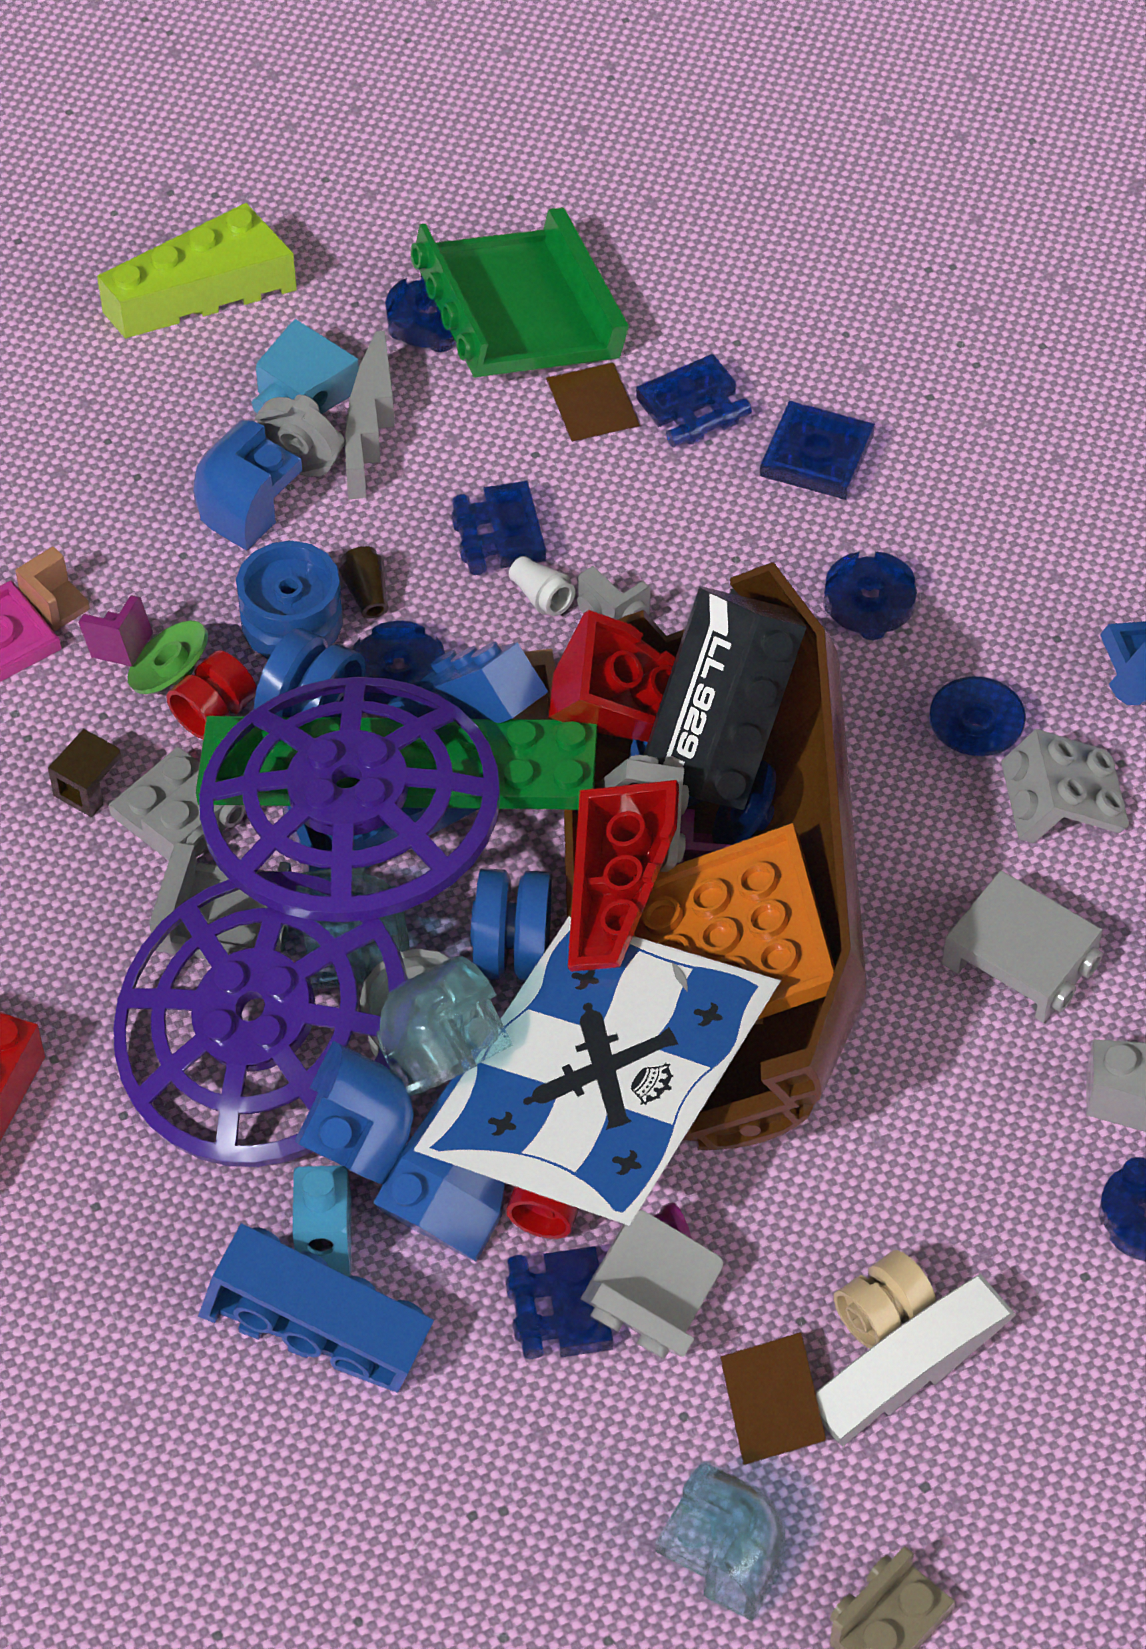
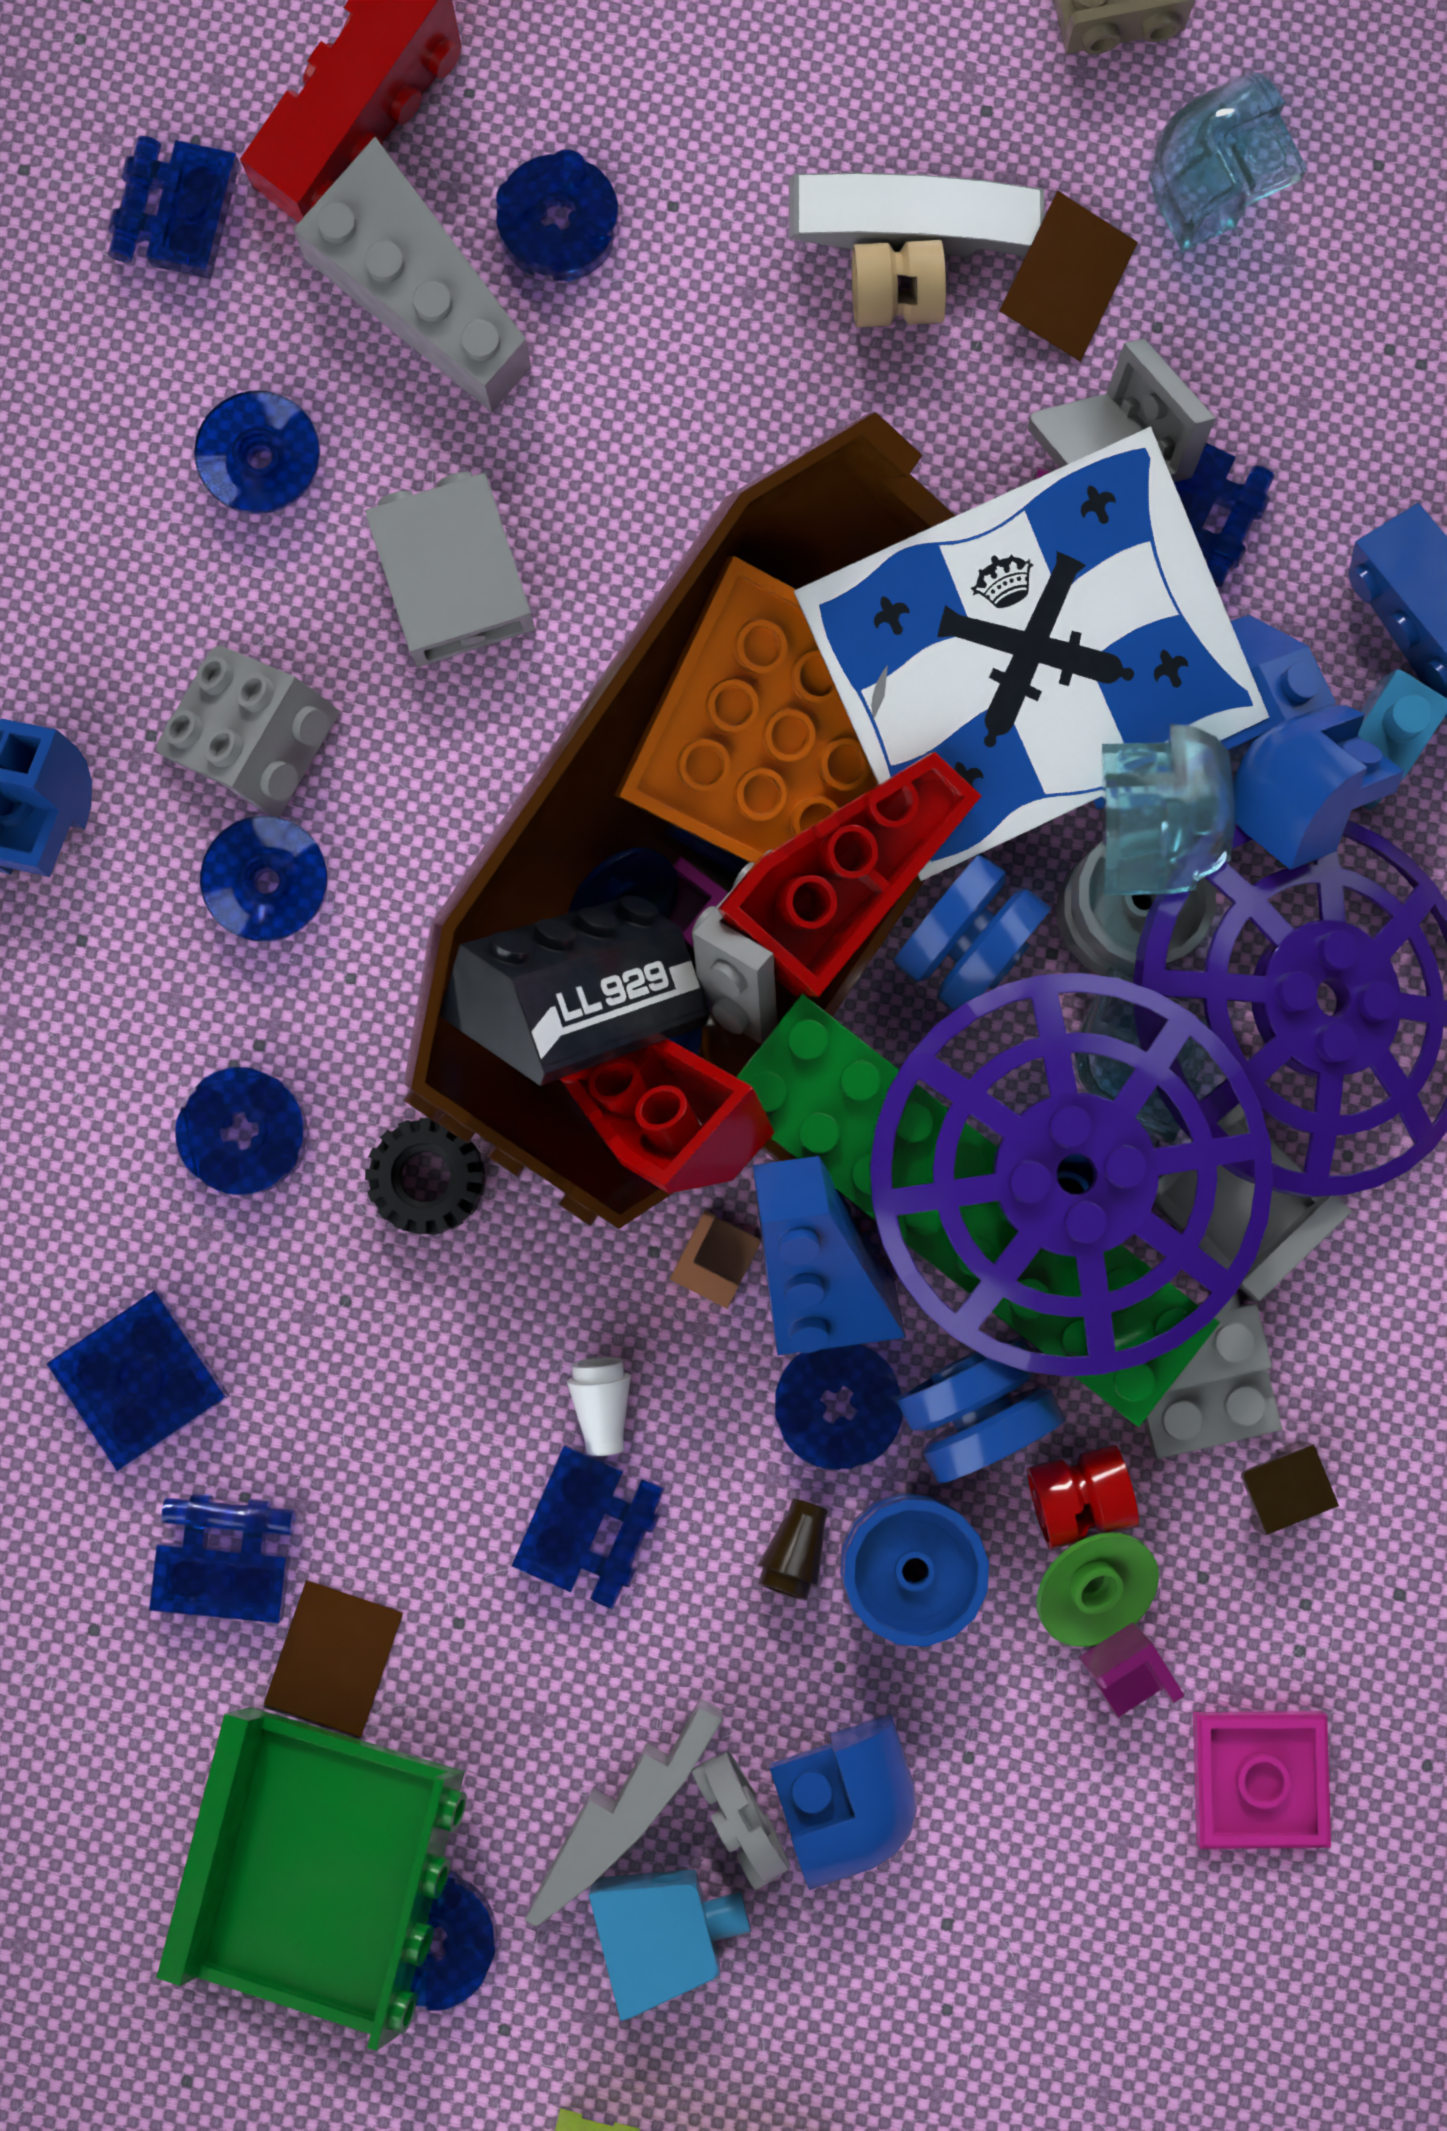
camera: 145 degrees left, 30 degrees up
(48, 589) = (1164, 1794): nougat panel -> none
(601, 596) = (554, 1327): light grey bracket -> none

